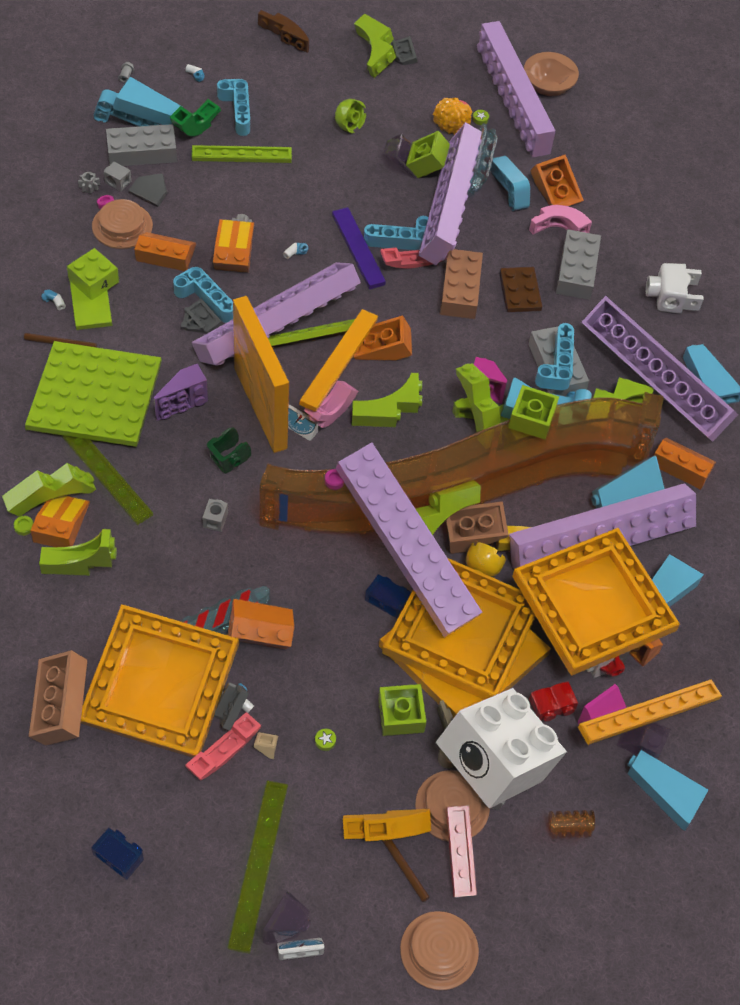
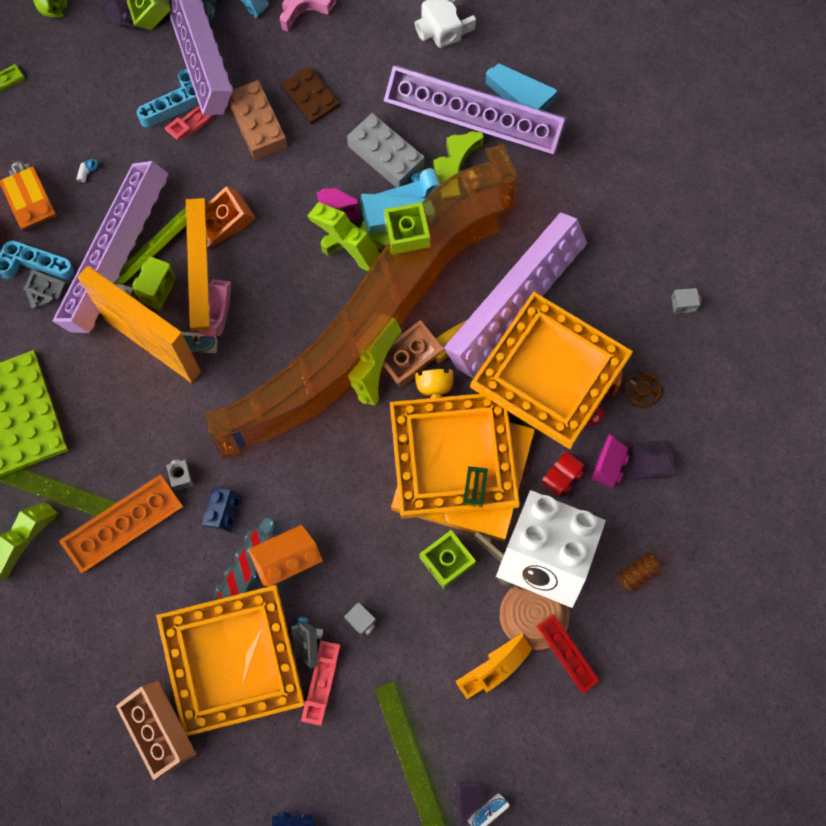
camera: 25 degrees left, 15 degrees up
(23, 525) = (16, 586): lime tile -> none
(59, 521) = (46, 563): orange slope -> none
(81, 557) = (88, 590): lime arch -> none
(144, 522) = (120, 523): none -> orange plate
(182, 392) = (77, 373): medium lavender slope -> none
(225, 442) = (163, 414): dark green piece -> none
(232, 562) = (222, 509): none -> dark blue bracket
(266, 744) = (353, 656): tan slope -> none
(292, 716) = (360, 619): none -> light grey brick
(296, 356) = (154, 282): none -> lime brick
(325, 739) = (399, 622): lime tile -> none
(333, 480) = (273, 394): dark pink tile -> none
(358, 248) = (141, 134): dark purple tile -> none
(387, 410) = (266, 285): lime arch -> none
(387, 595) = (373, 461): clear blue brick -> none
(406, 870) = (533, 694): reddish brown piece -> none
(408, 539) = (368, 411): lavender brick -> none
(439, 950) = (596, 744): nougat piece -> none
(456, 669) = (473, 501): none -> dark green tile
(560, 374) = (388, 148): medium azure beam -> none
(578, 264) = (347, 41): light grey brick -> none
(632, 483) = (514, 237): medium azure slope -> none
(649, 711) = (645, 439): light orange tile -> none
(667, 787) = (697, 495): medium azure slope -> none
(673, 673) = (642, 389): none -> reddish brown piece
(676, 579) = (597, 304): medium azure slope -> none
(683, 463) = (544, 187): orange slope -> none

